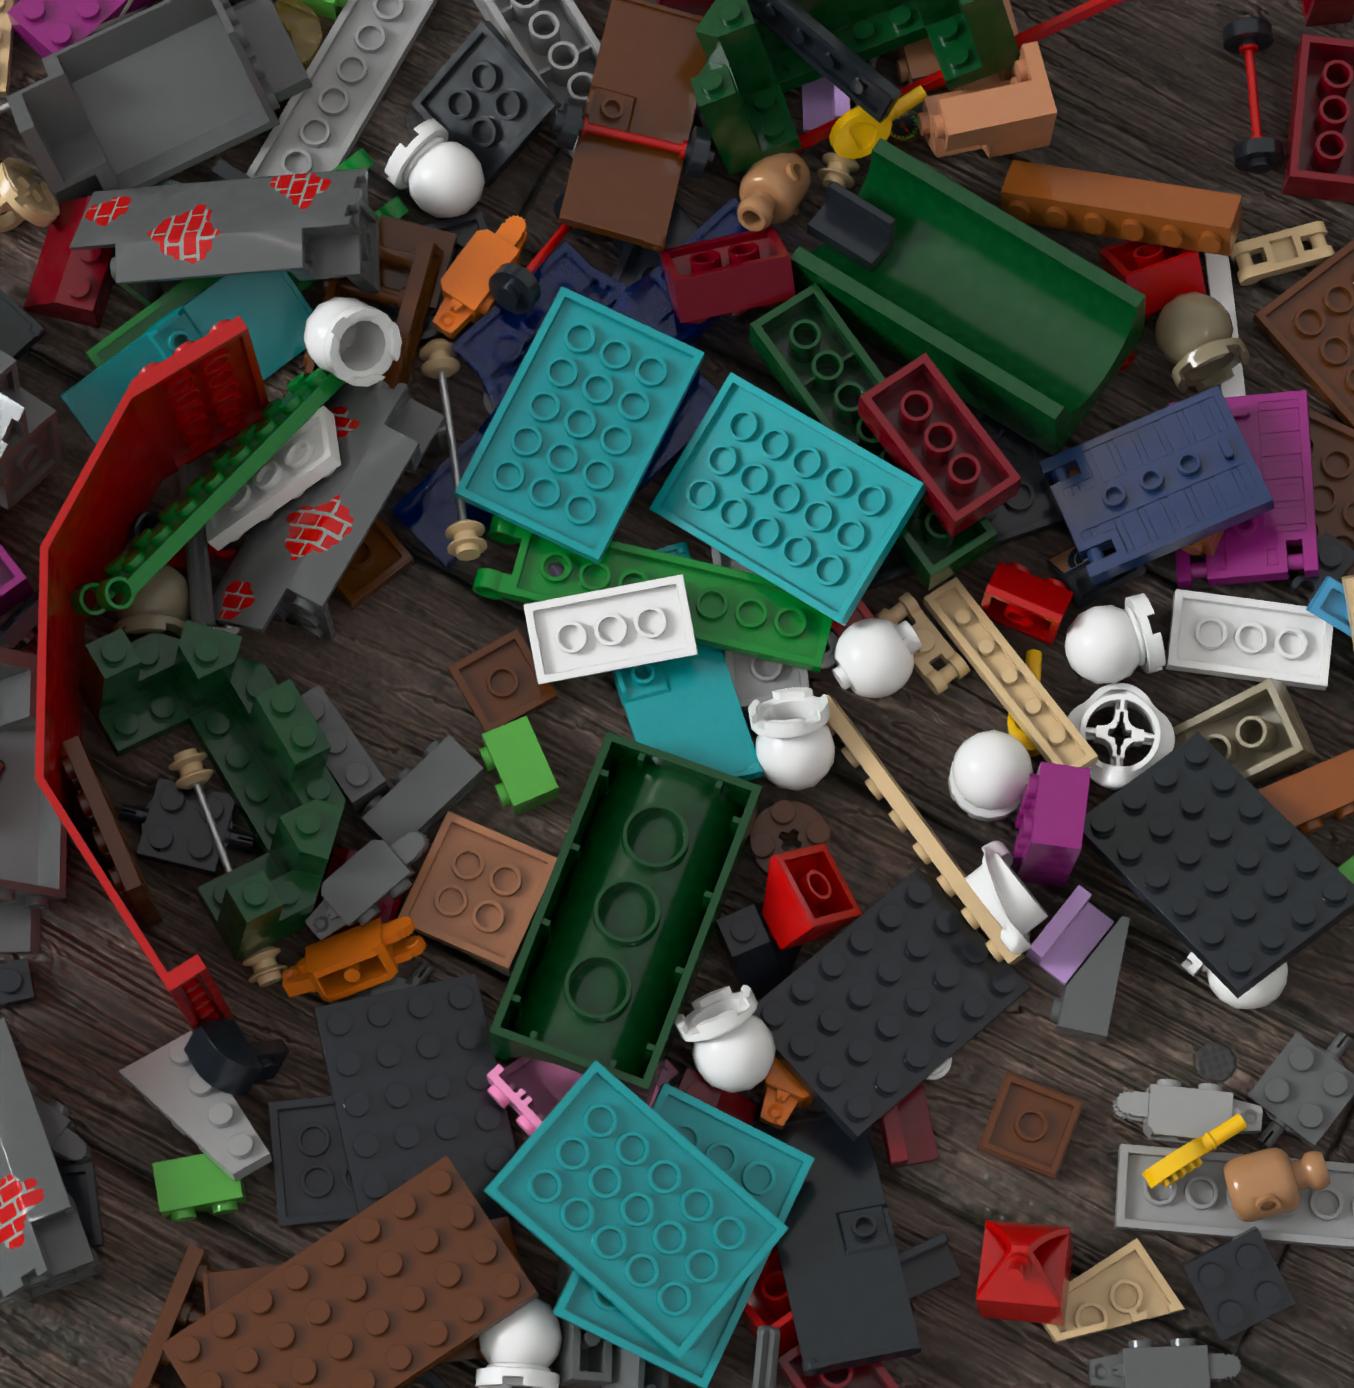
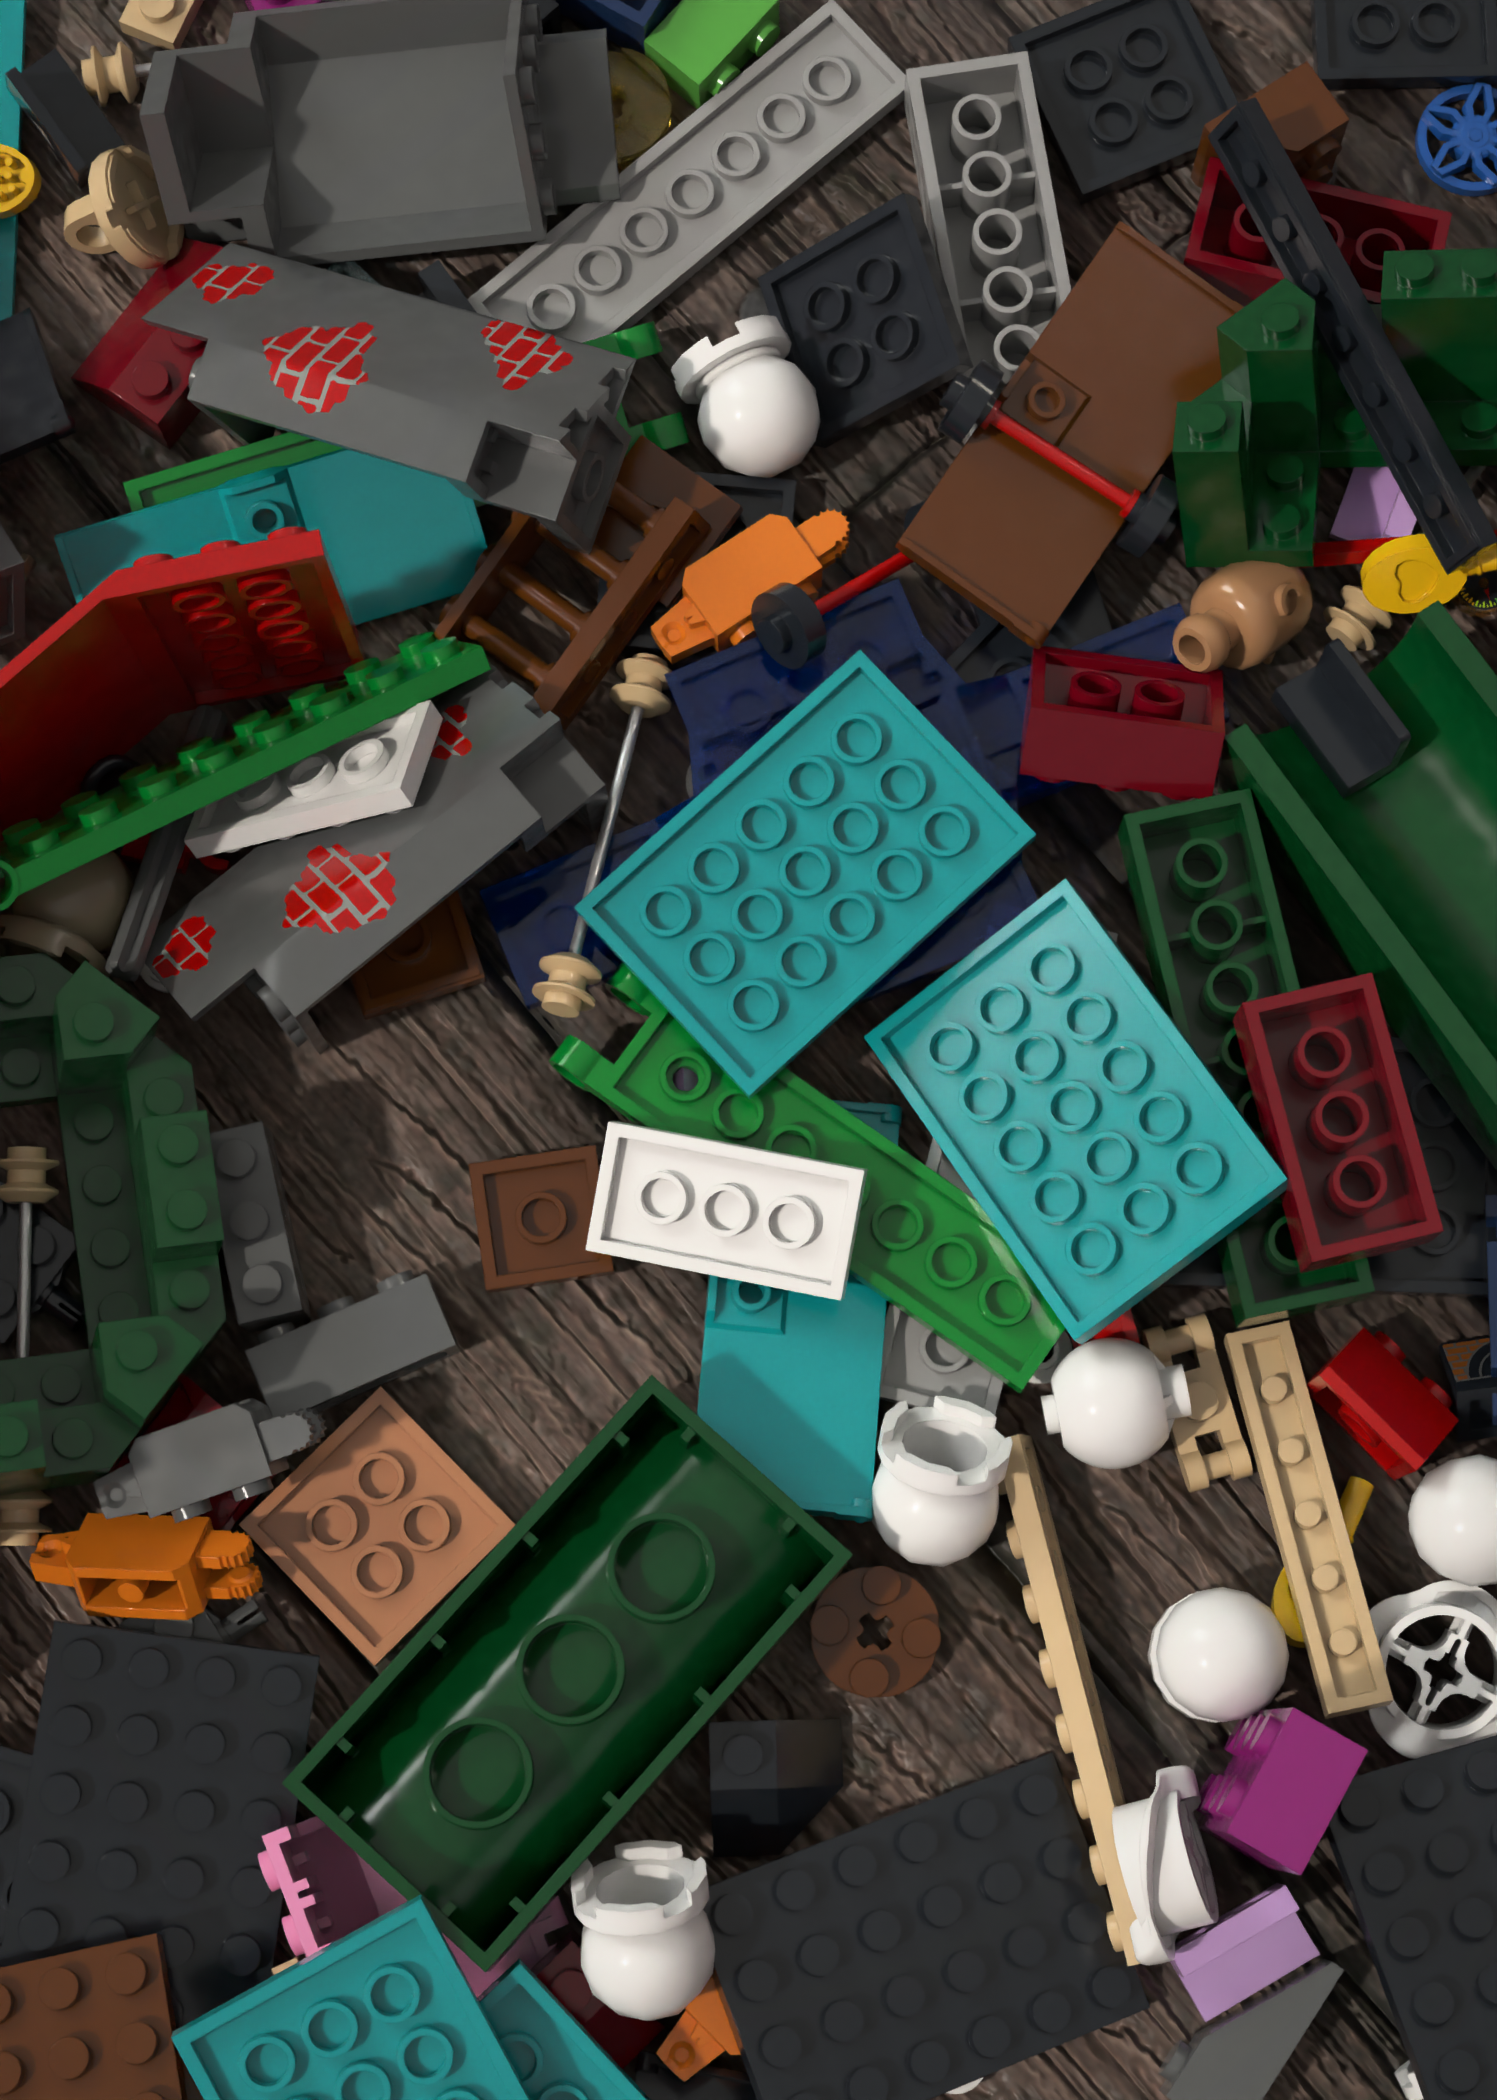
camera: 25 degrees right, 5 degrees up
(352, 340) = (511, 617): white tile -> none
(519, 765) = (514, 1358): bright green brick -> none
(806, 897) = (860, 1740): red slope -> none

